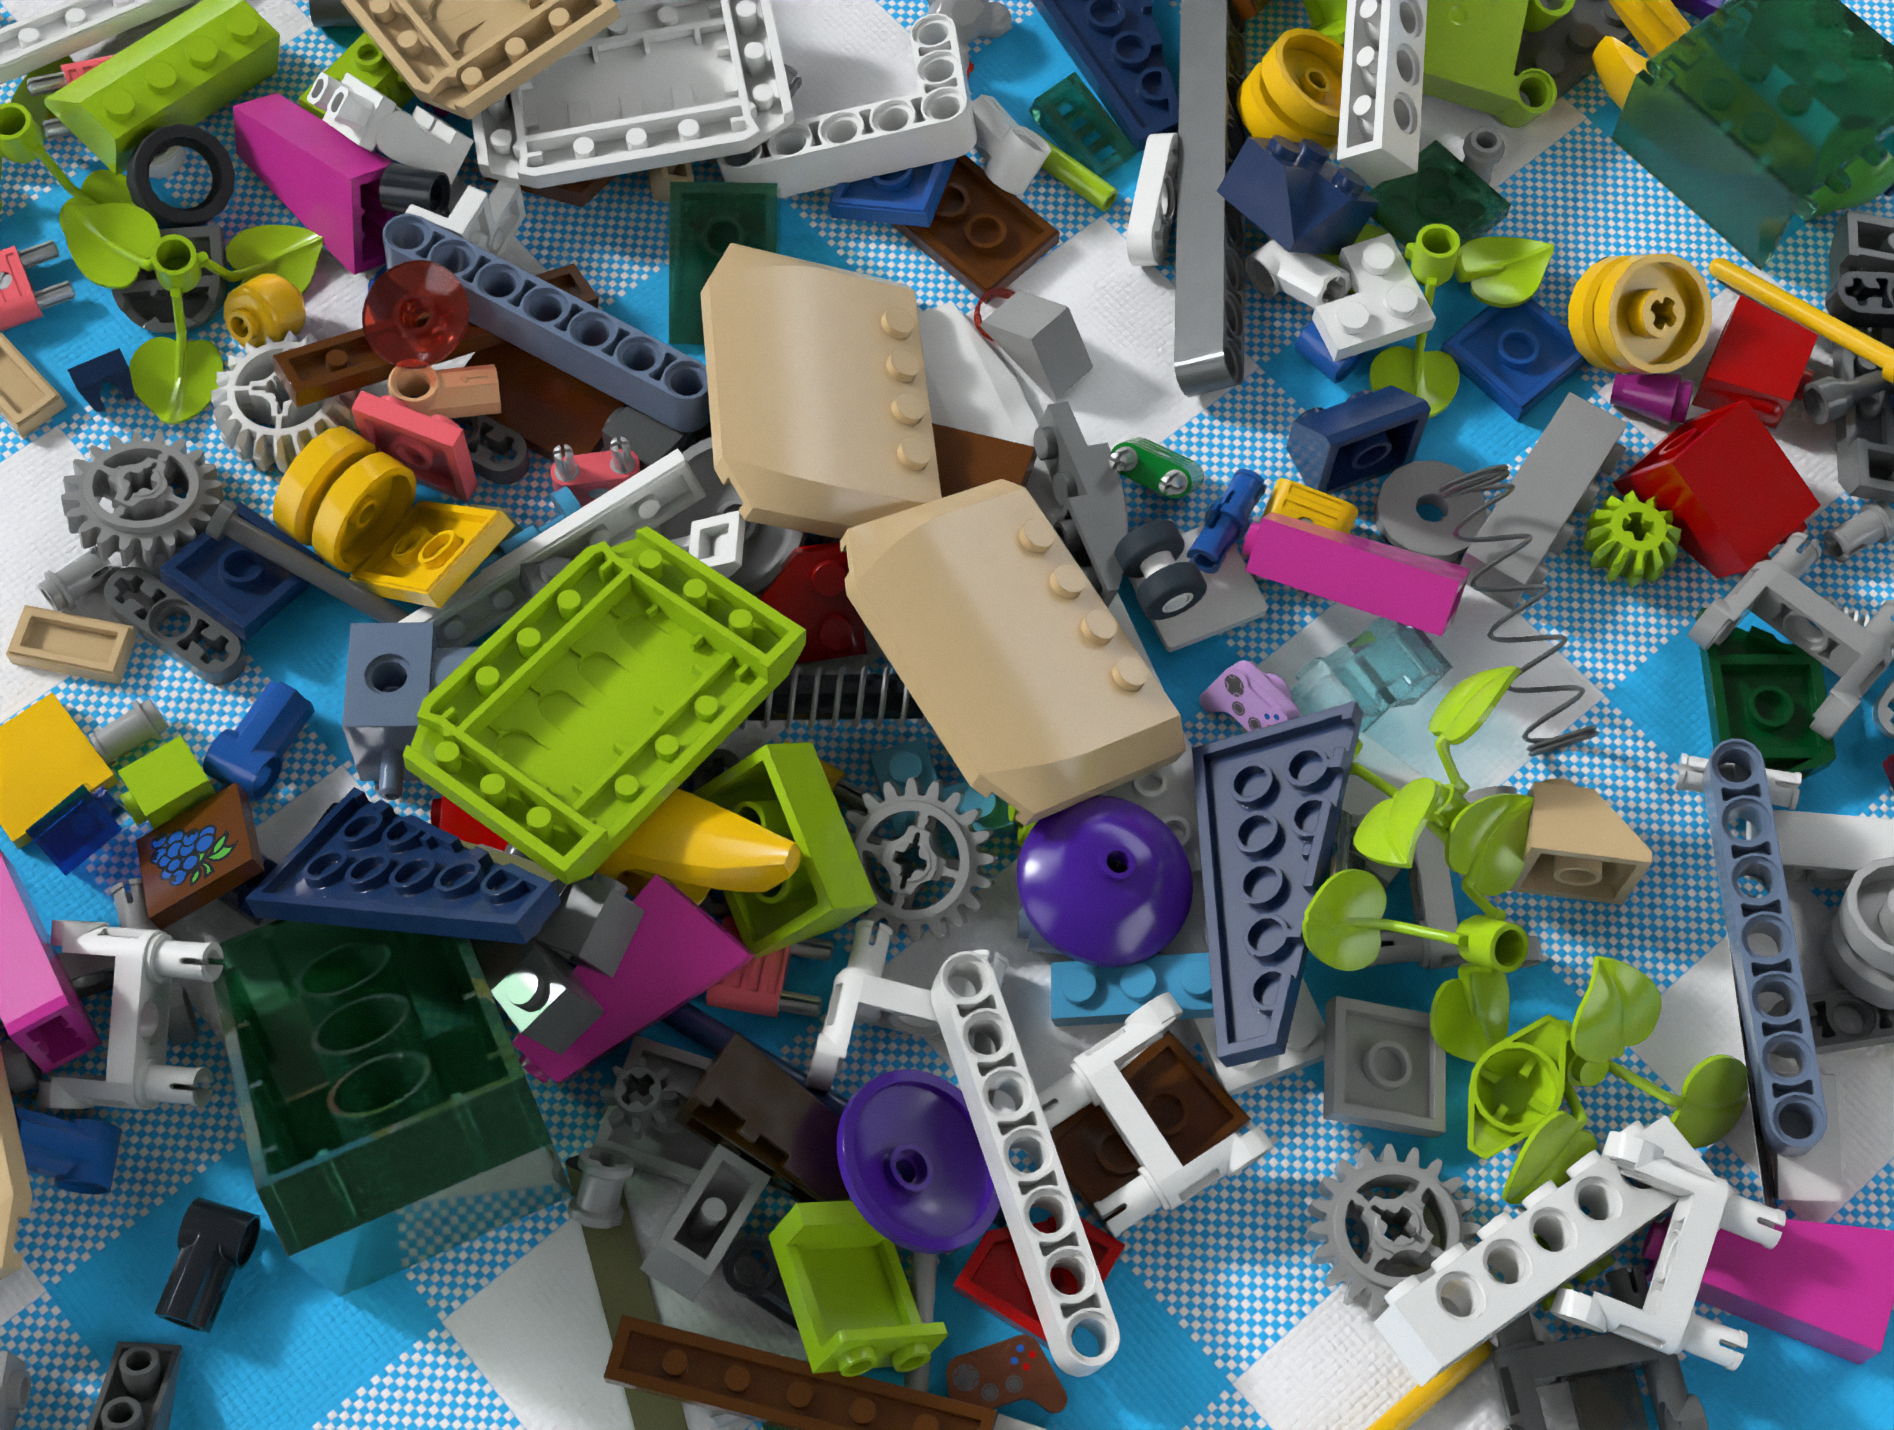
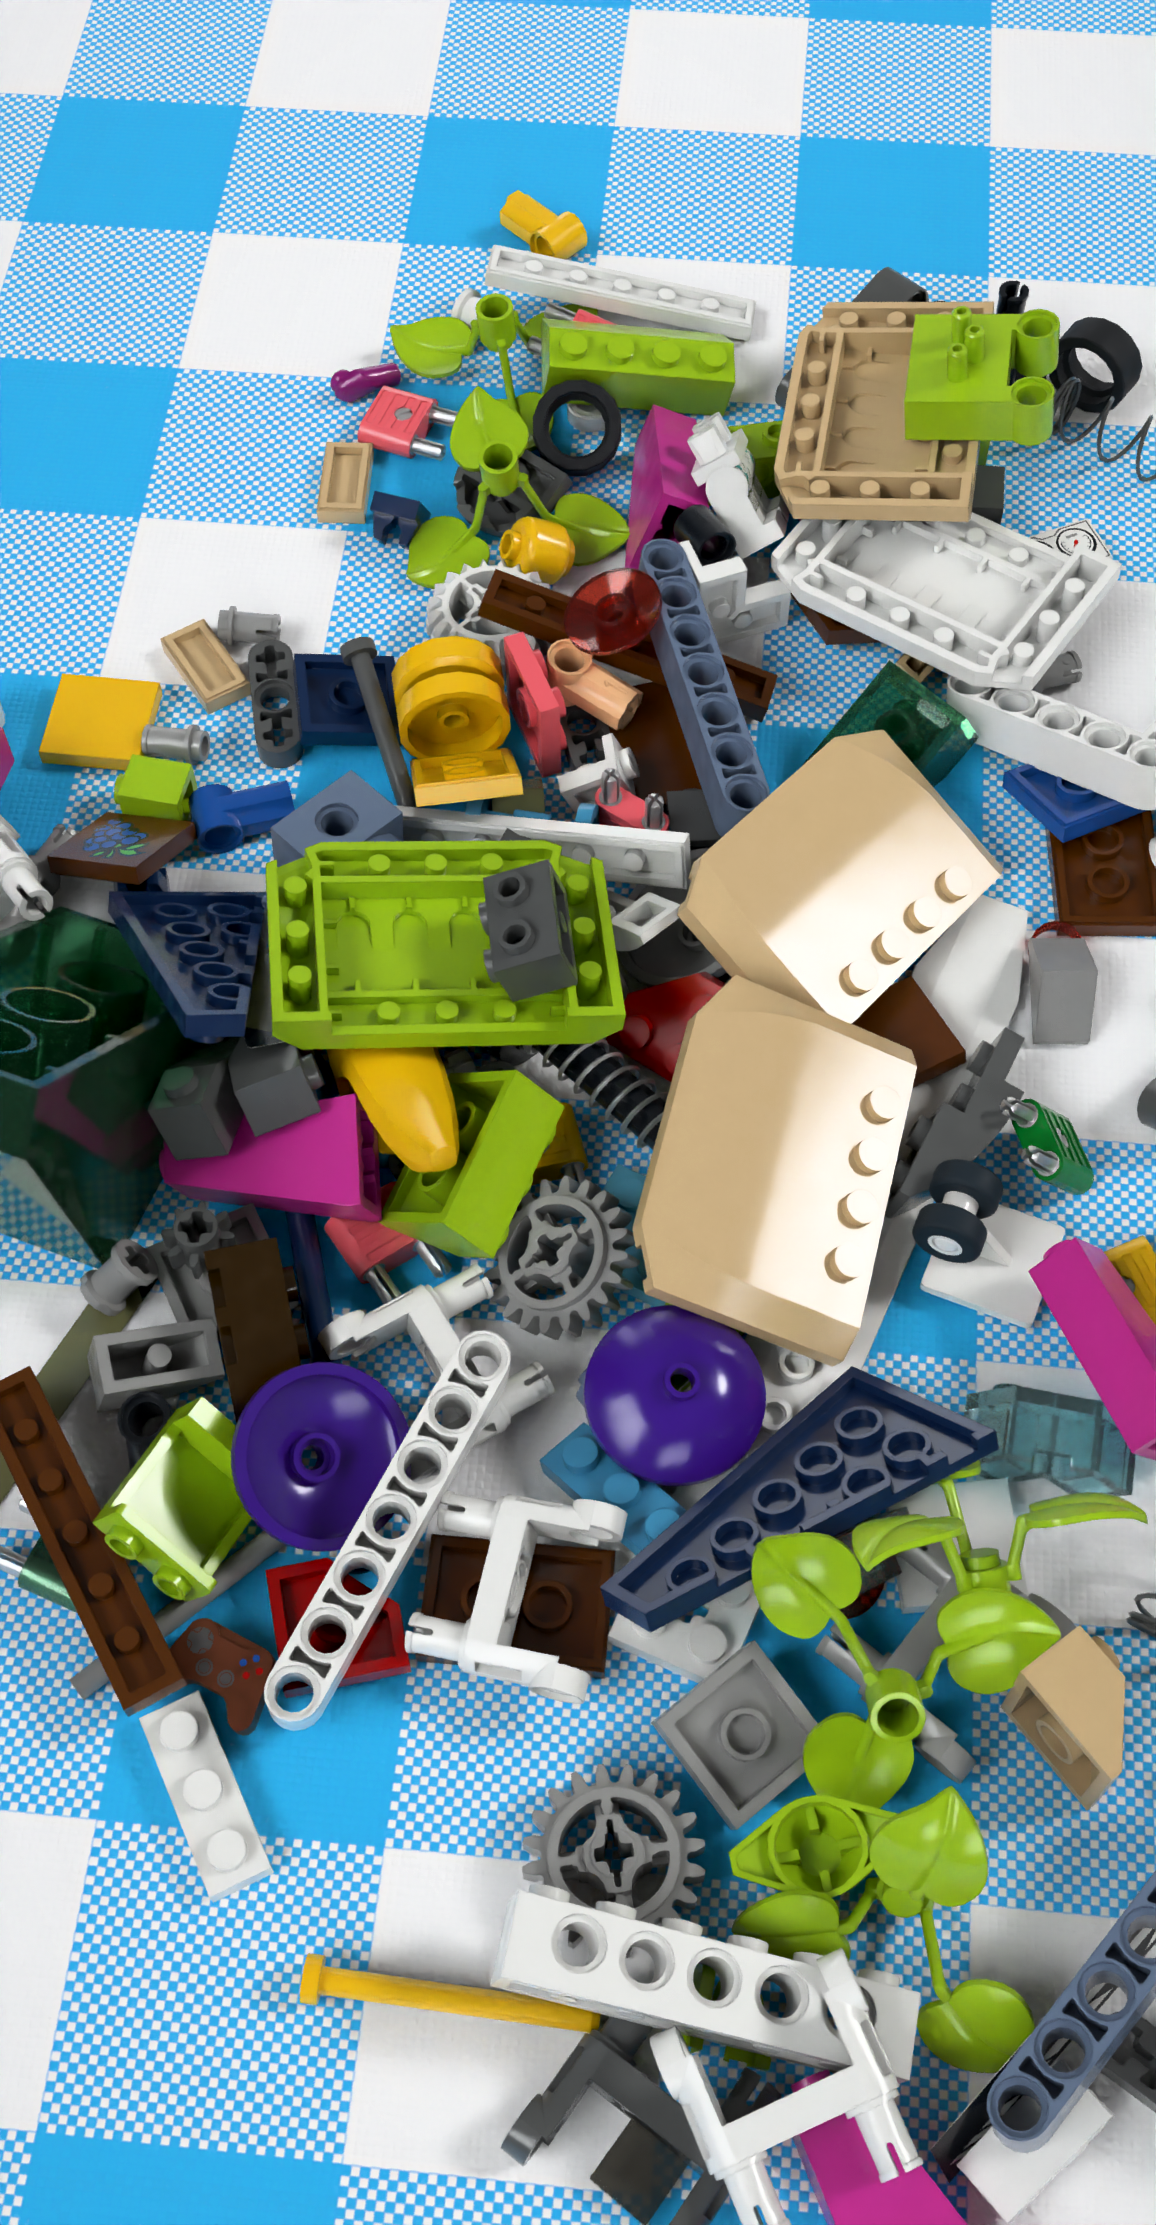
camera: 50 degrees right, 5 degrees down
(78, 826) = (76, 770): clear blue brick -> none
(146, 511) = (329, 600): light grey gear -> none
(529, 472) = (582, 784): none -> white bracket
(672, 627) = (528, 931): none -> dark grey brick
(1227, 521) = (1062, 1224): blue pin -> none
(1250, 697) = (940, 1370): lavender piece -> none

